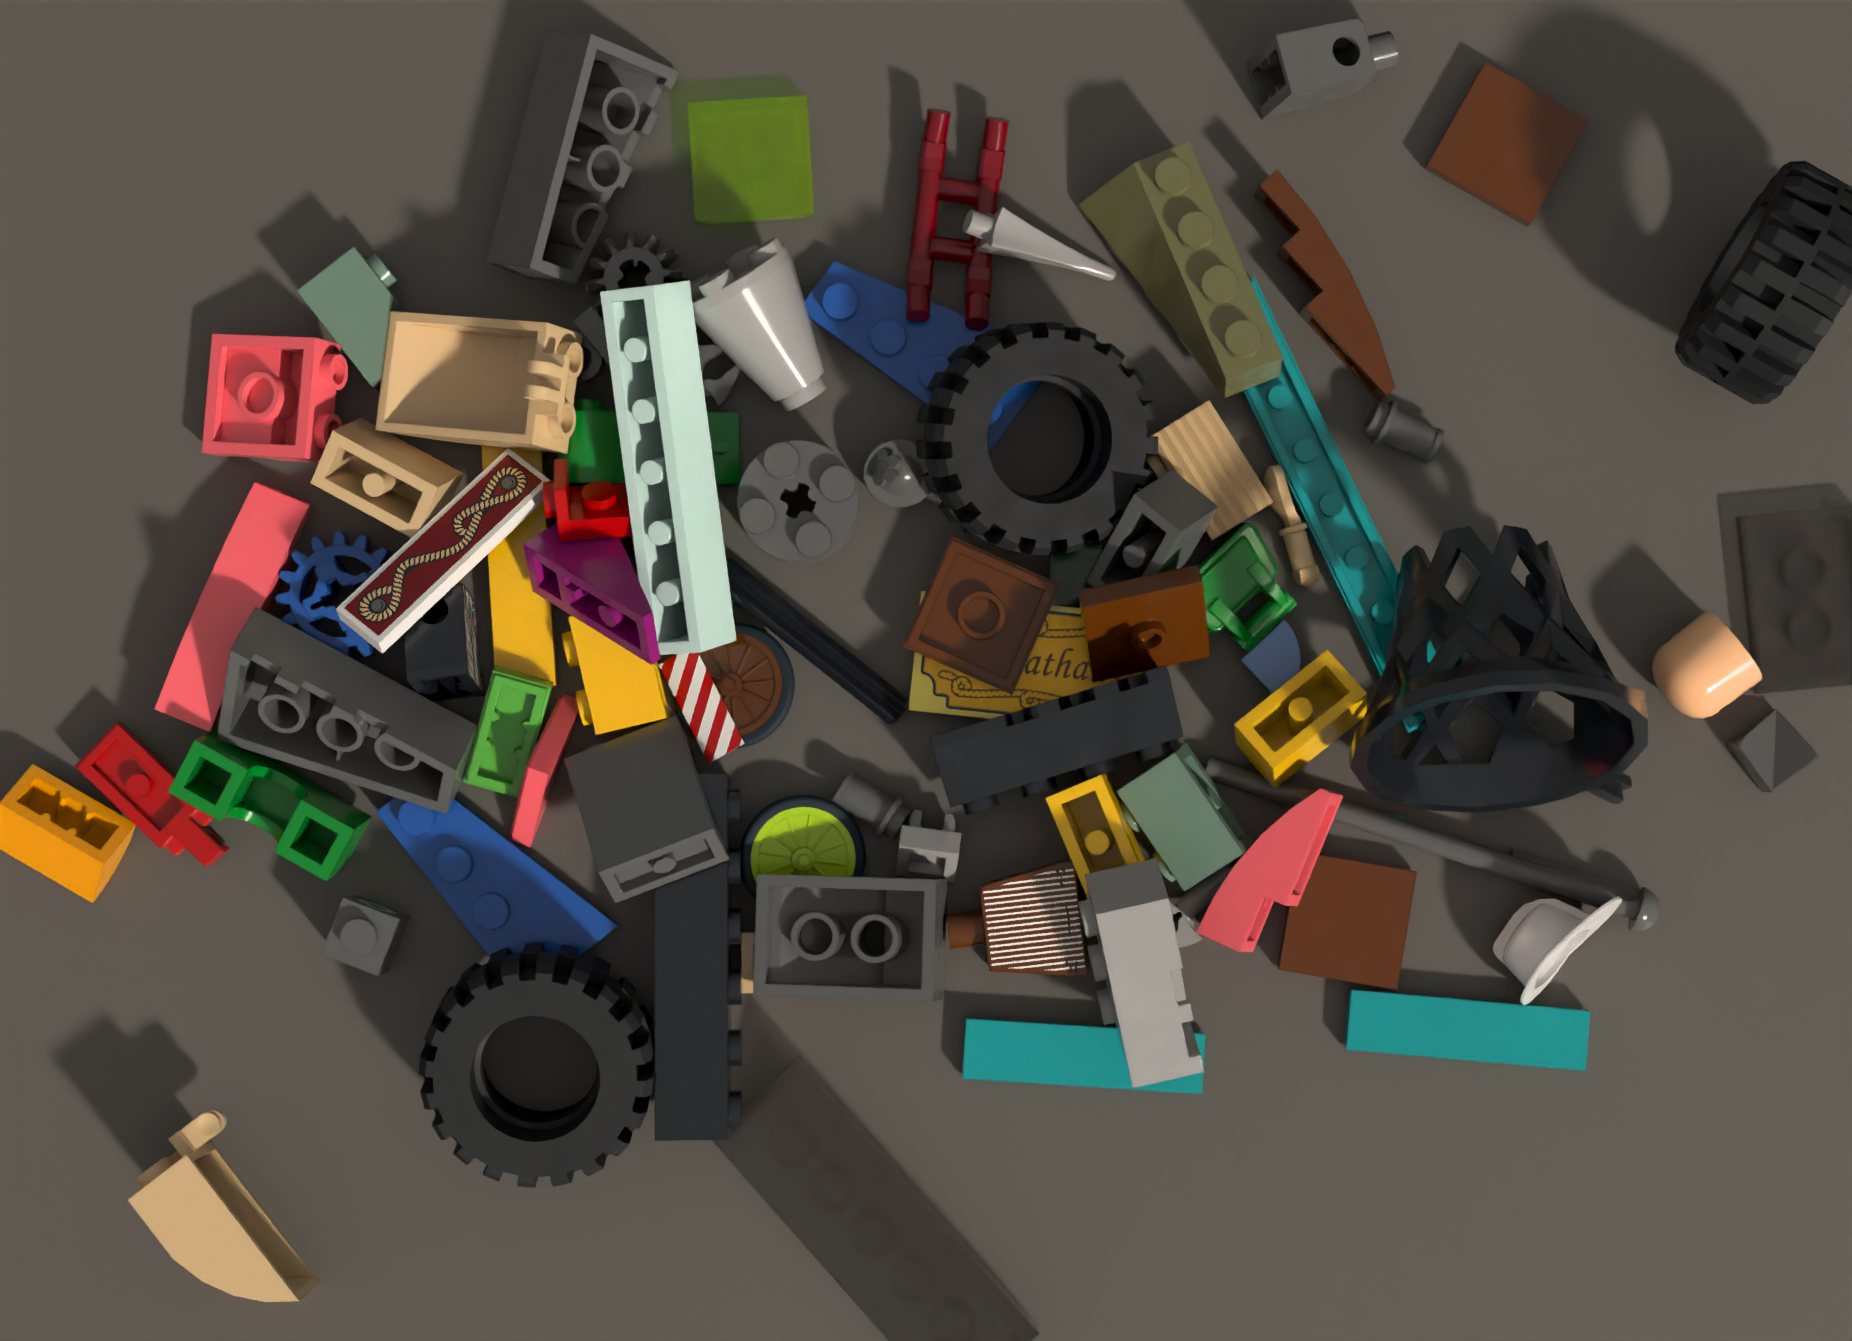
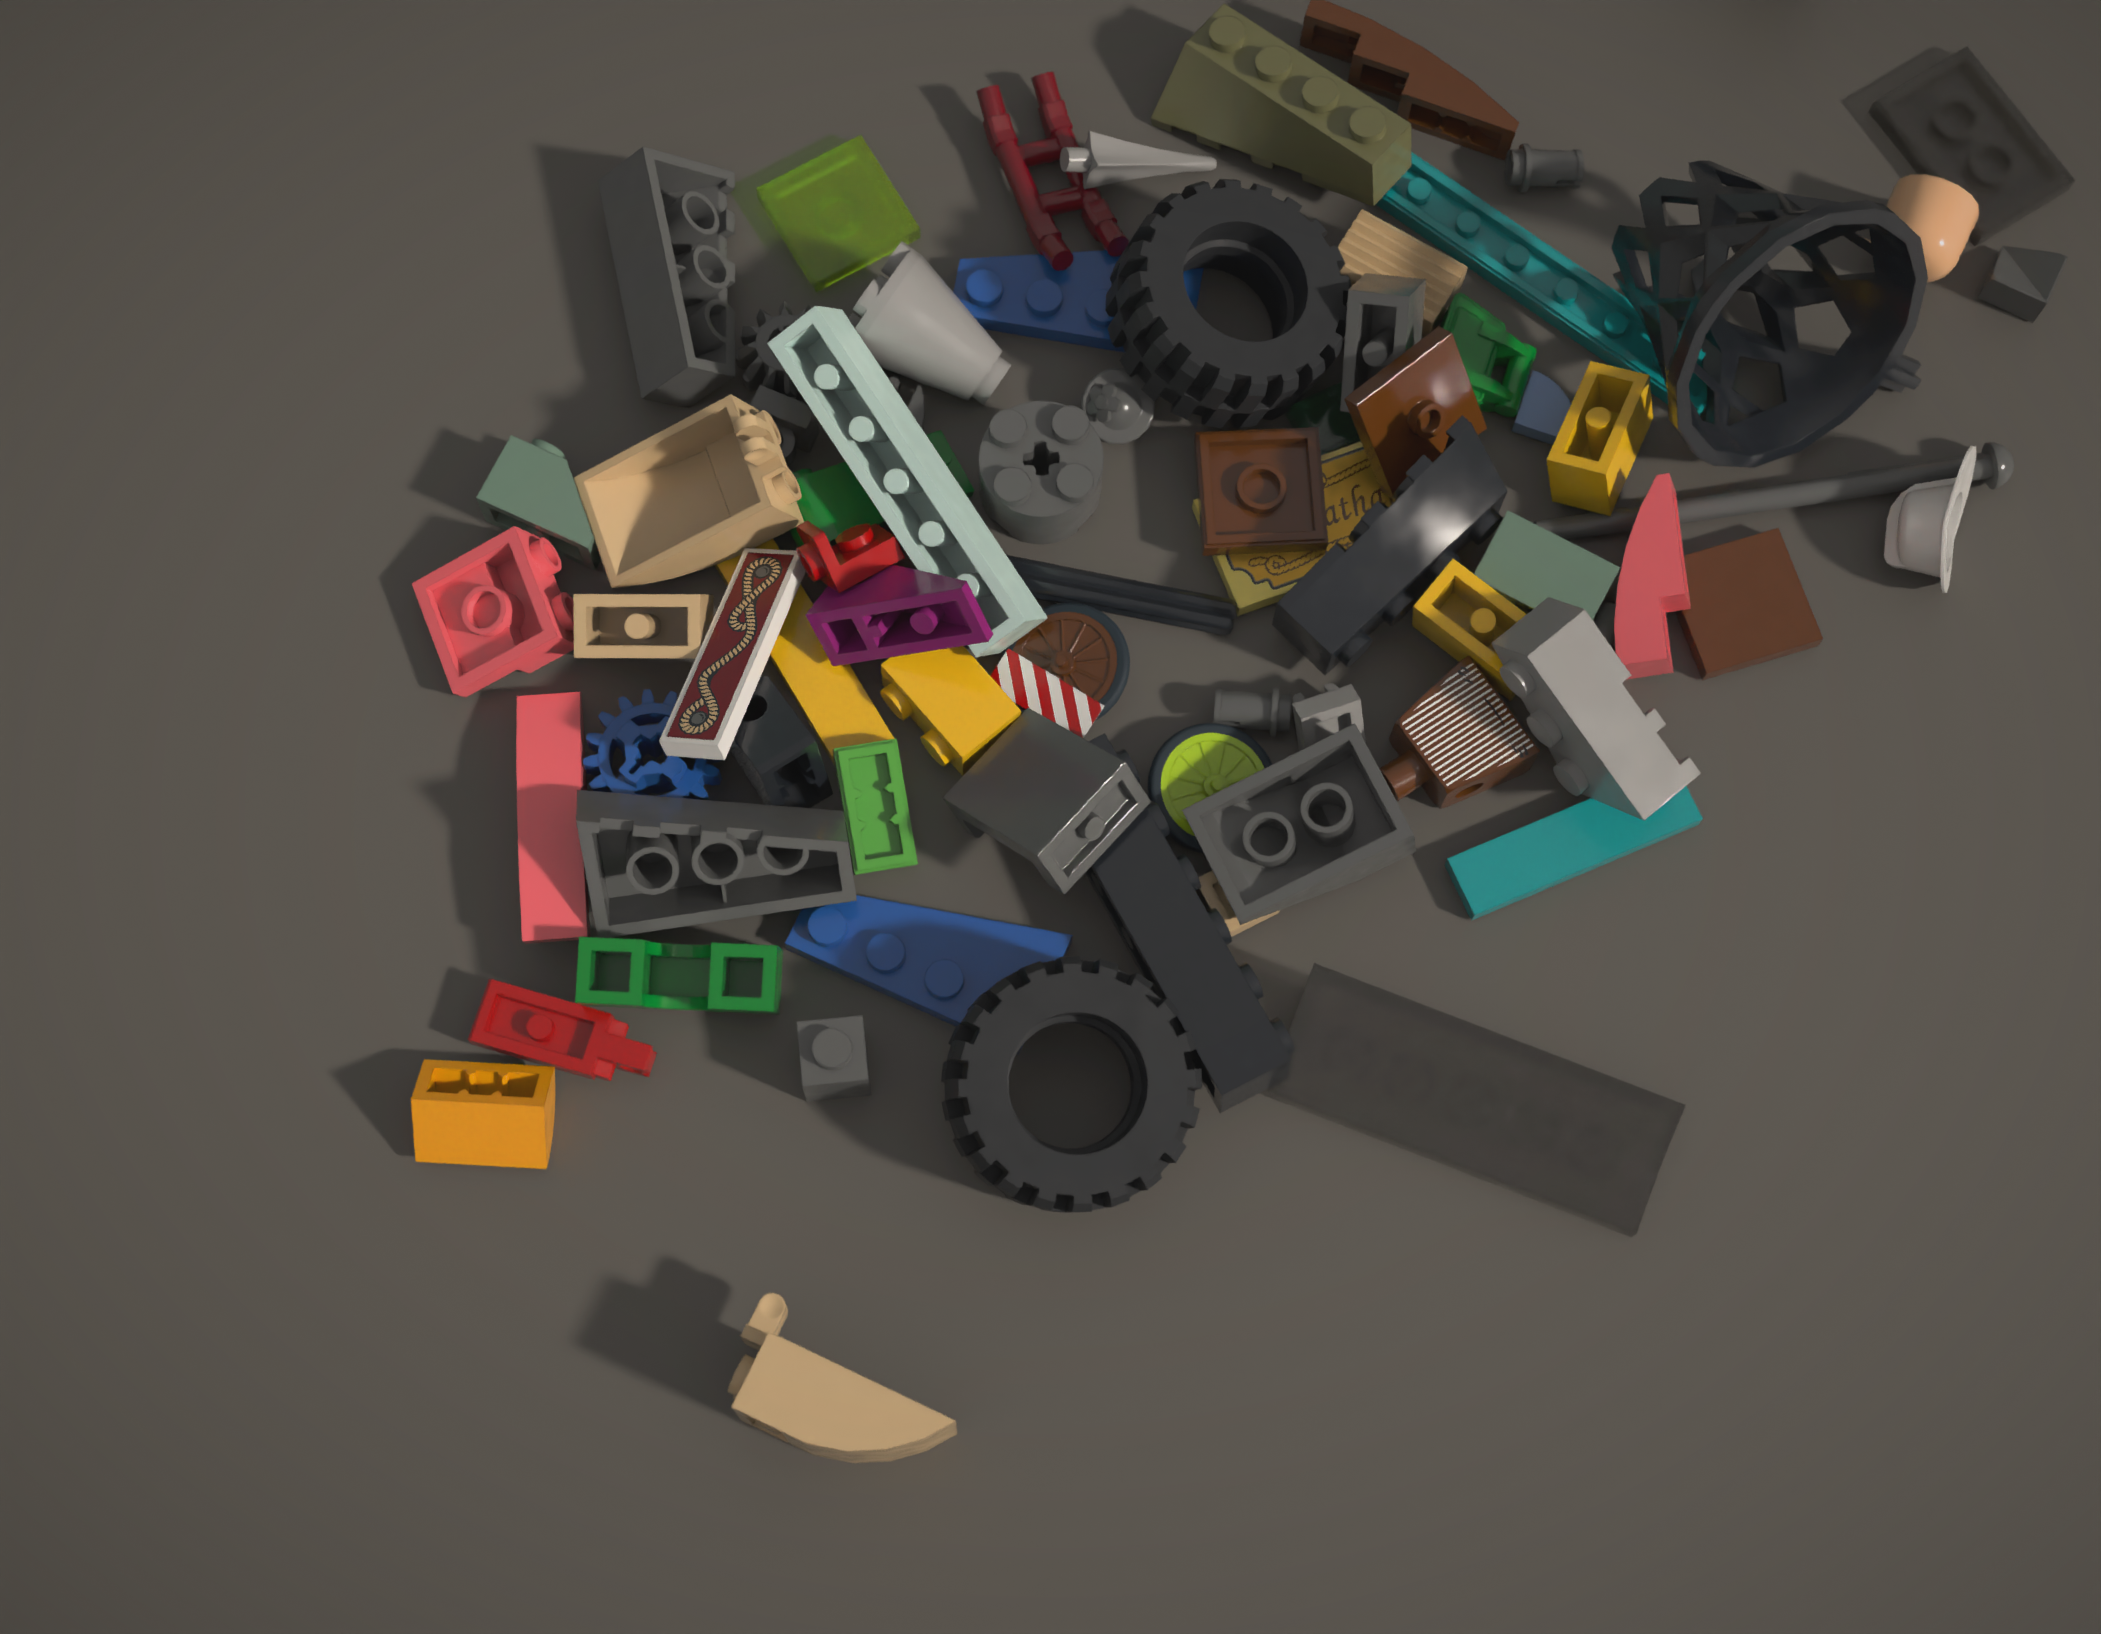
camera: 30 degrees left, 15 degrees down
(543, 770) = (927, 831): coral tile -> none
(1294, 534) = (1497, 296): tan piece -> none
(1467, 1029) = (1904, 646): teal tile -> none

